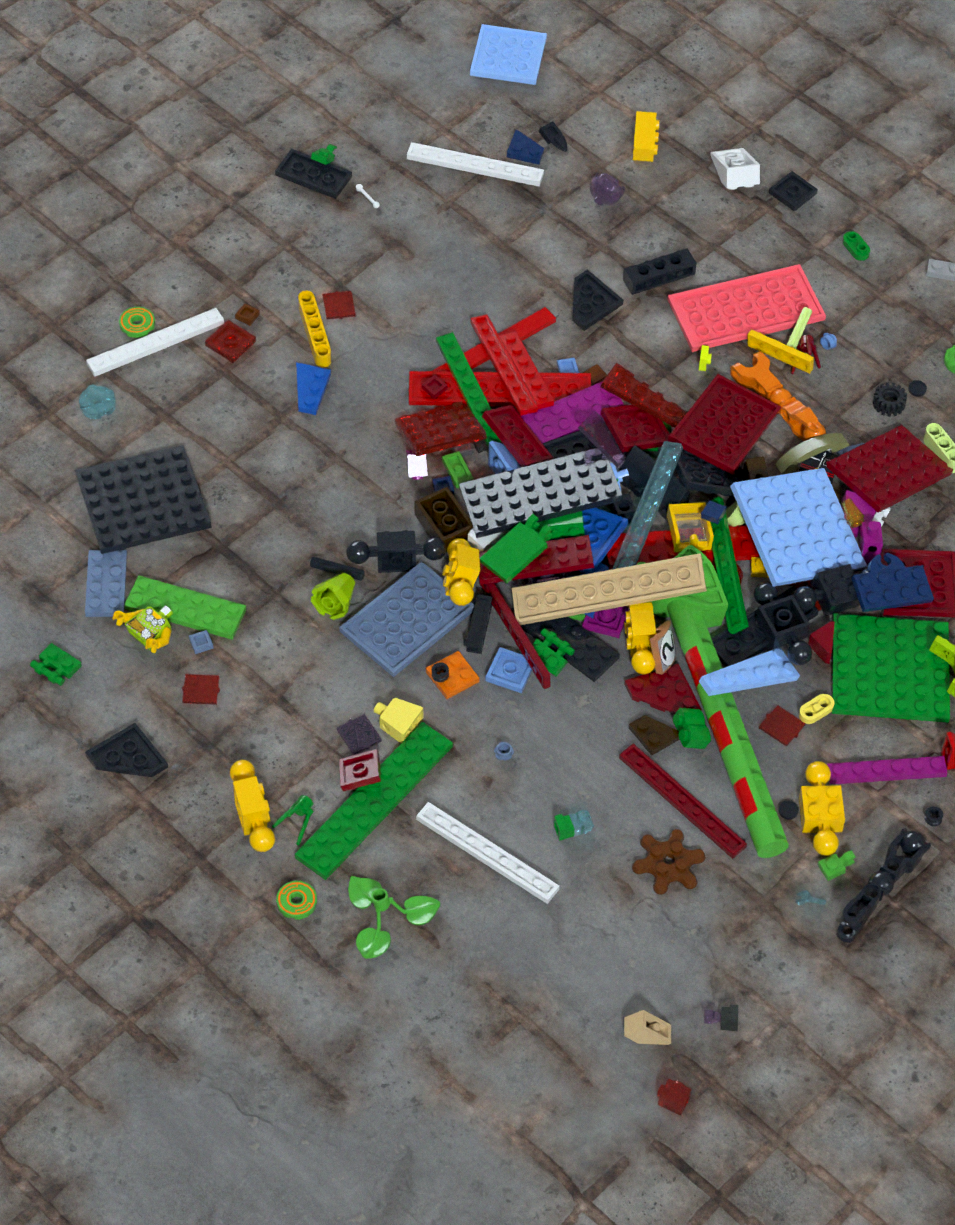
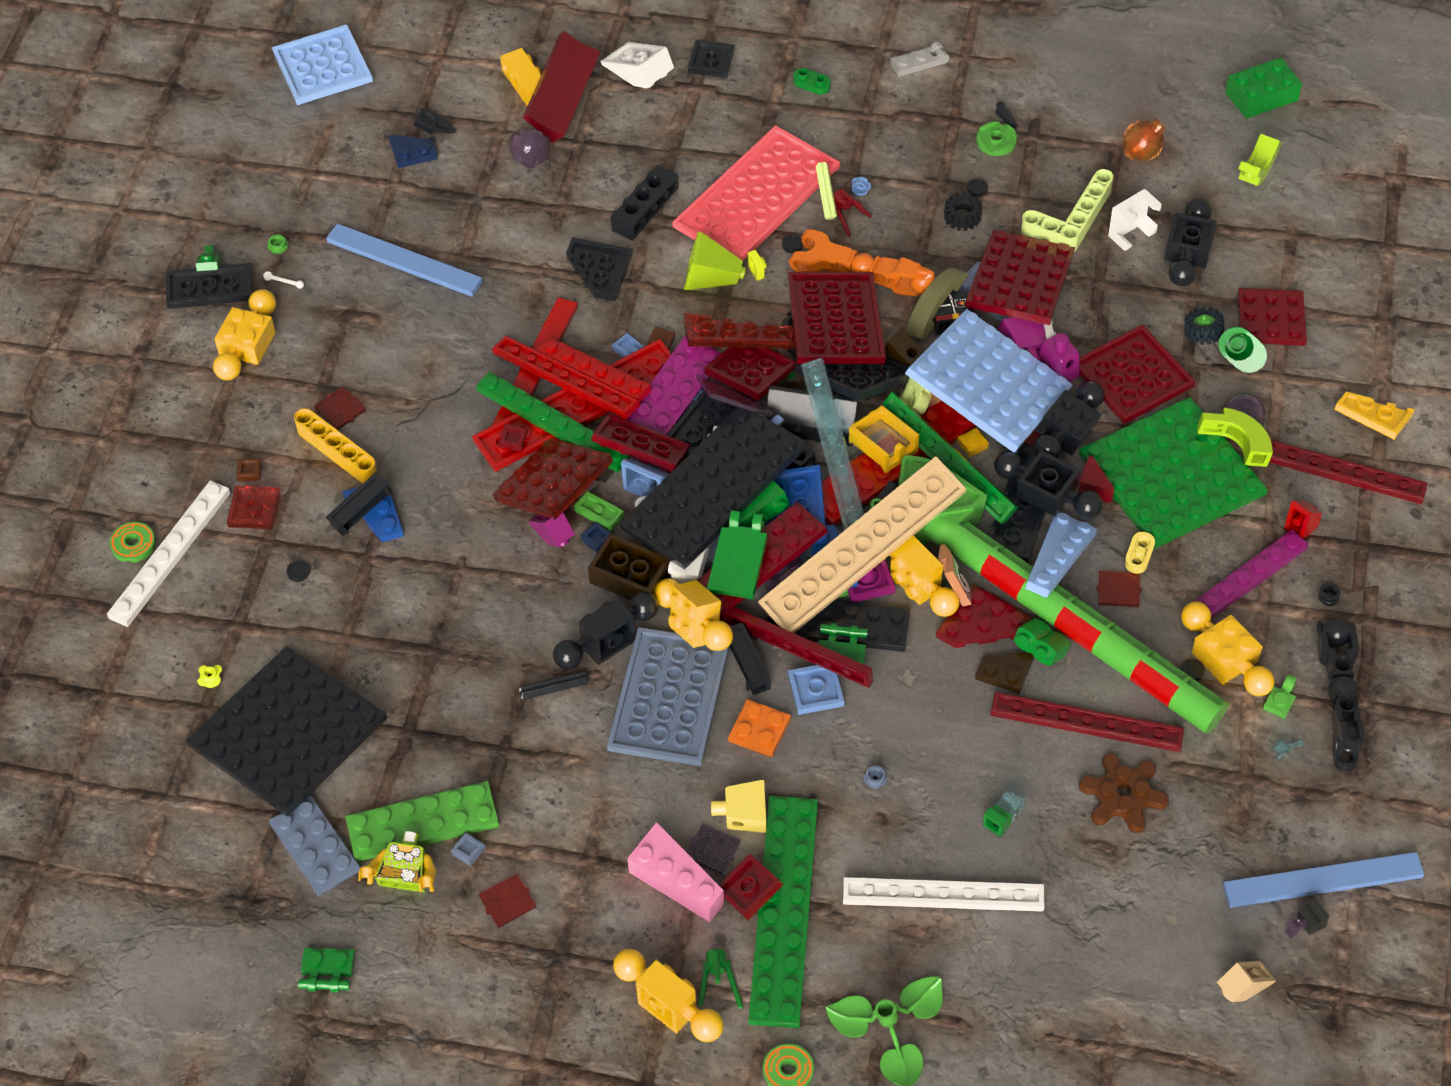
camera: 30 degrees left, 0 degrees up
(93, 394) = (151, 641): clear light blue plate -> none
(121, 441) = (209, 681): none -> neon yellow plate
(127, 754) = (484, 1020): black plate -> none
(229, 400) = (298, 571): none -> black piece
(298, 375) = (359, 503): none -> black container
(310, 220) = (245, 335): none -> yellow brick
(317, 729) = (673, 872): none -> bright pink wedge
(334, 596) = (577, 716): lime cone -> none
(381, 168) = (277, 244): none -> bright green plate
(437, 668) = (750, 724): black bush -> none
(460, 225) = (405, 260): none -> medium blue tile
(475, 164) = (373, 190): white plate -> none
(662, 155) = (560, 86): none -> dark red arch
(669, 340) = (712, 265): none -> lime slope
(674, 1096) = (1327, 1033): clear red brick -> none
(713, 512) = (900, 410): dark blue tile -> none
(744, 357) = (792, 243): none -> black piece
(761, 1000) = (1323, 879): none -> medium blue tile
(780, 351) = (825, 219): yellow plate -> none
(852, 513) = (1027, 339): clear yellow cone -> none
(891, 585) = (1117, 388): dark blue plate -> none

